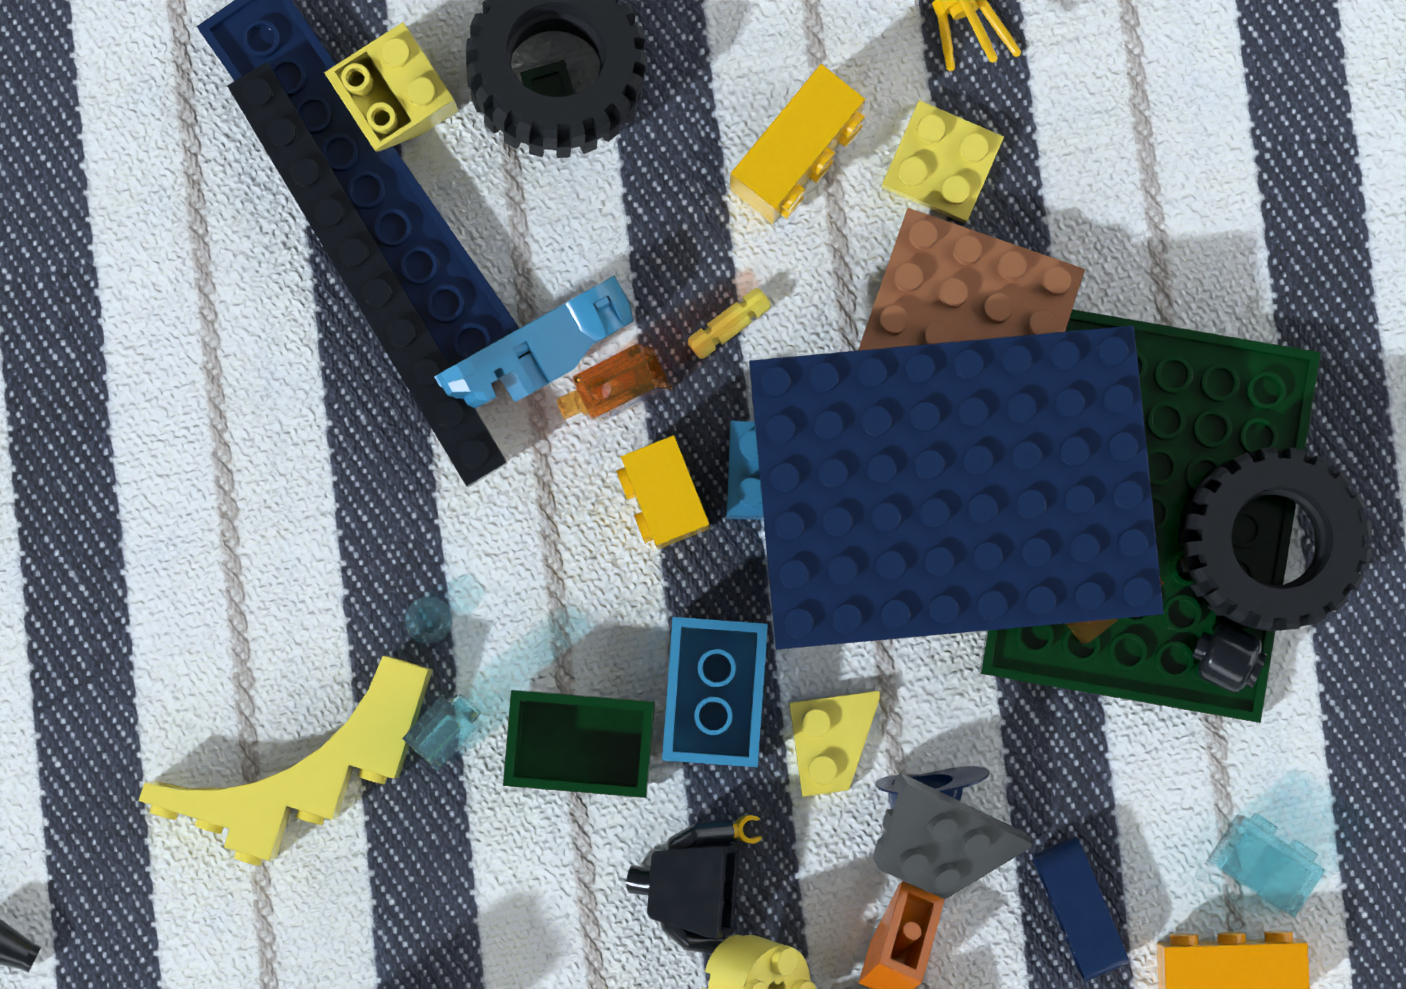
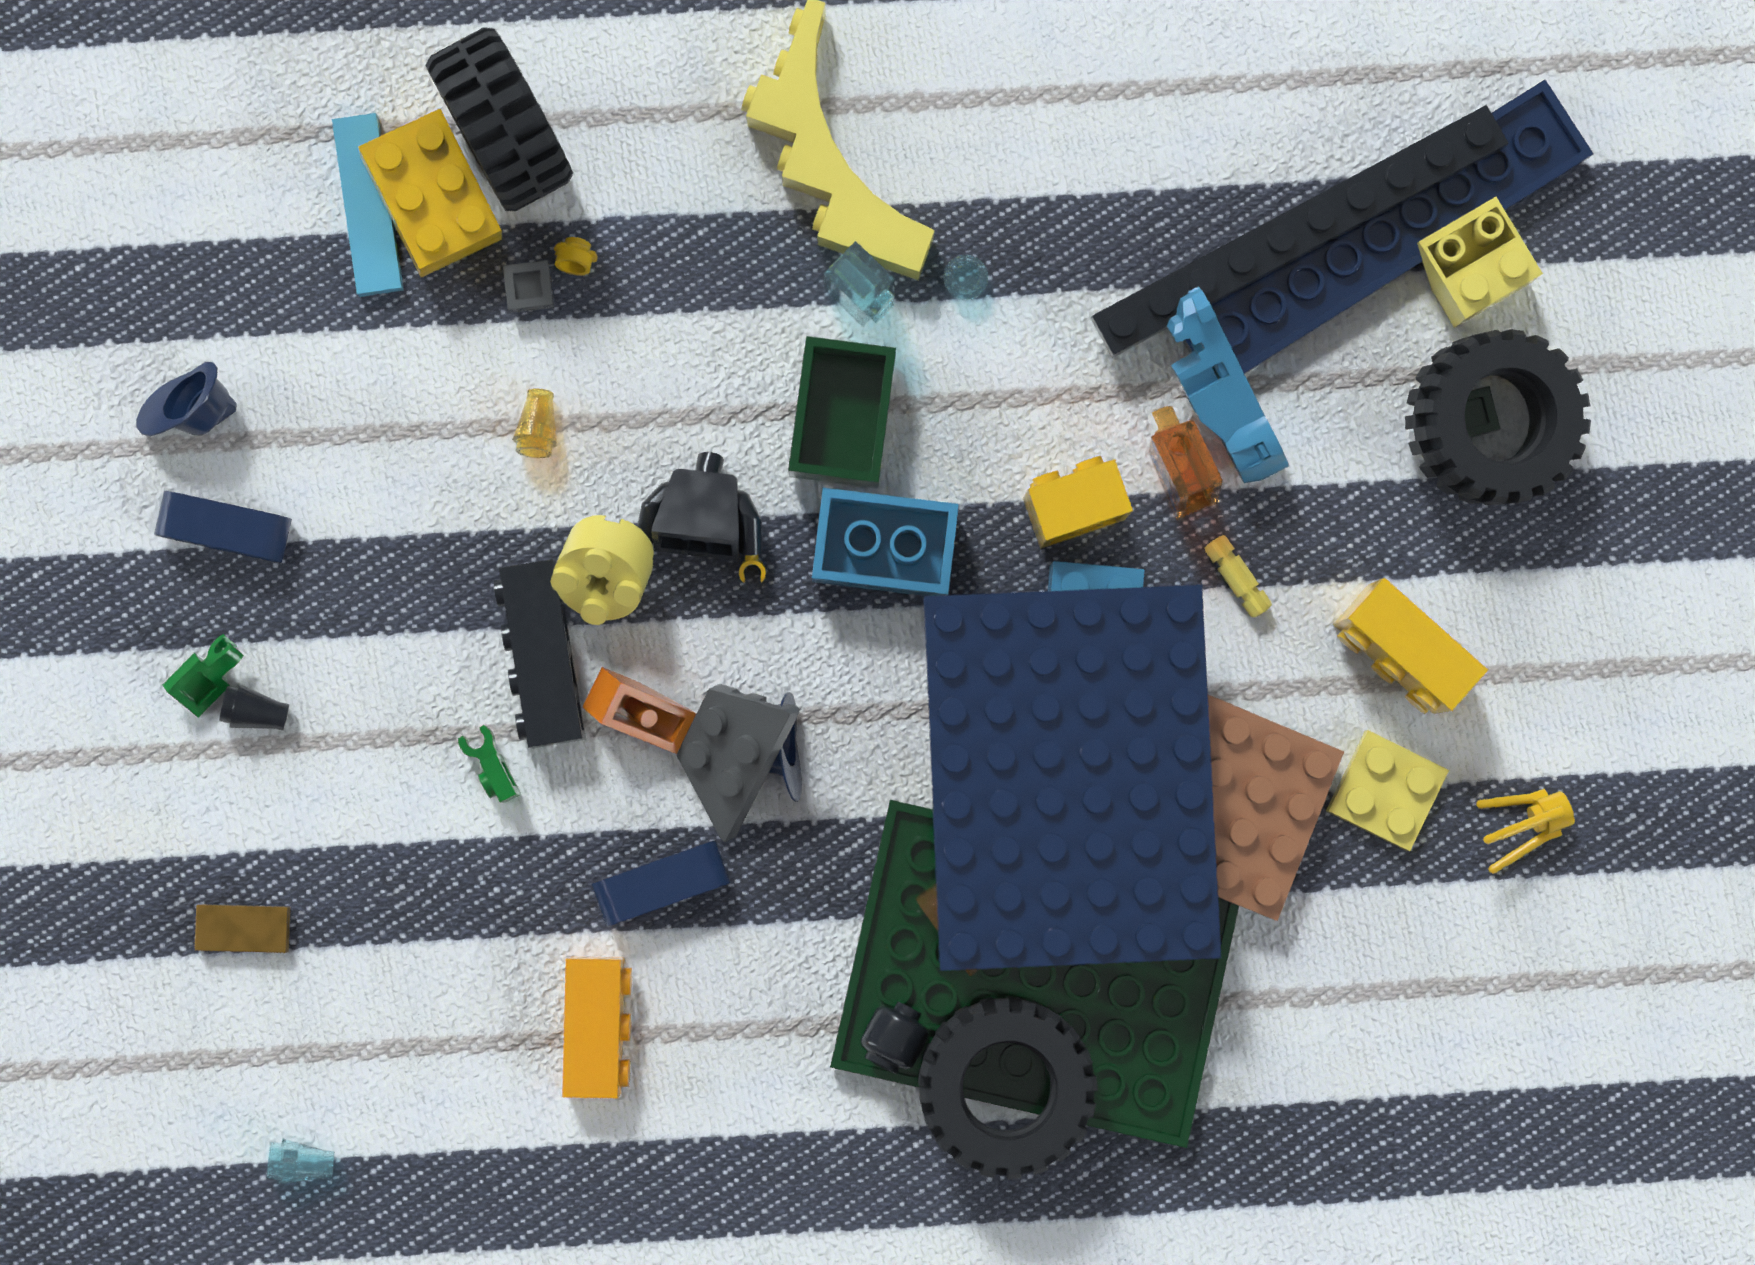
camera: 85 degrees right, 0 degrees up
(830, 739) = (834, 654): light yellow wing -> none
(1266, 864) = (694, 1065): clear light blue brick -> none

